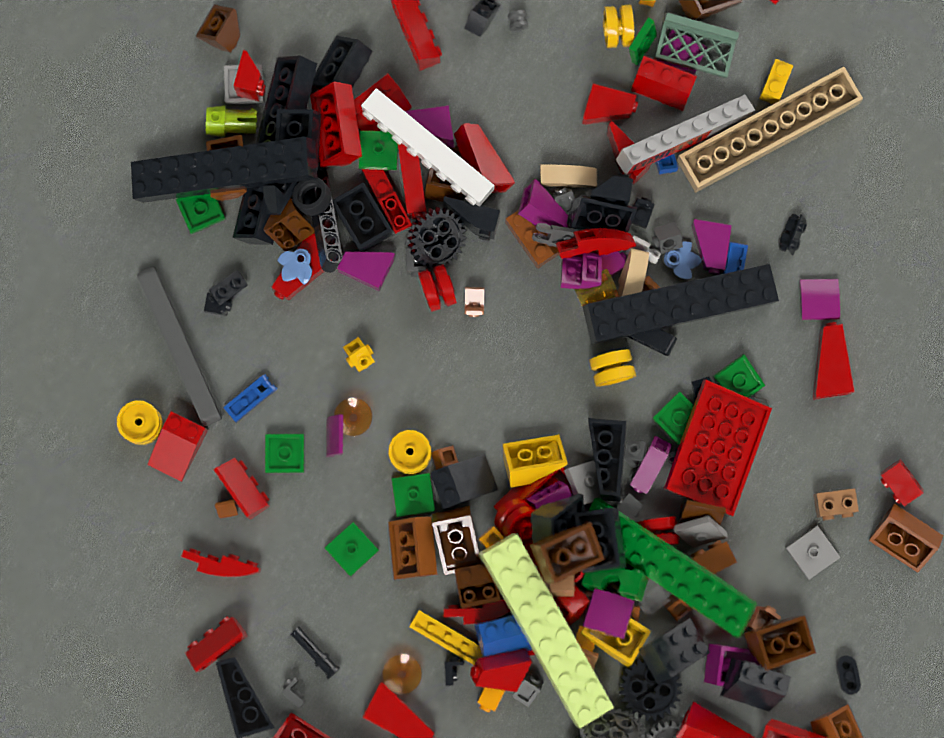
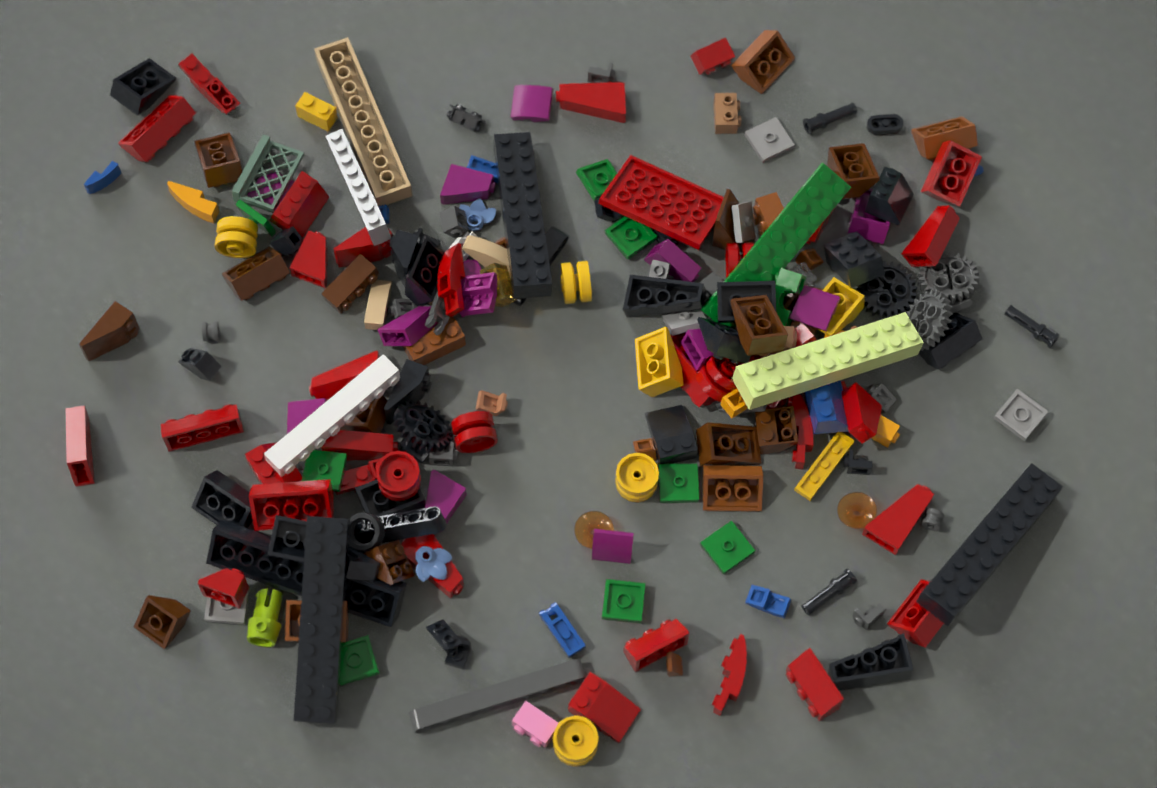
camera: 85 degrees left, 15 degrees down
(154, 384) = (534, 724): none -> bright pink brick
(300, 593) = (767, 601): none -> blue slope
(358, 354) = (531, 516): yellow brick -> none
(370, 209) = (398, 476): none -> red wheel
(584, 146) = (350, 284): none -> reddish brown brick
(586, 52) = (256, 273): none -> reddish brown slope
(621, 76) = (287, 241): none -> black brick
(843, 607) = (822, 120): none -> black pin
(862, 366) = (599, 75): none -> dark grey bracket

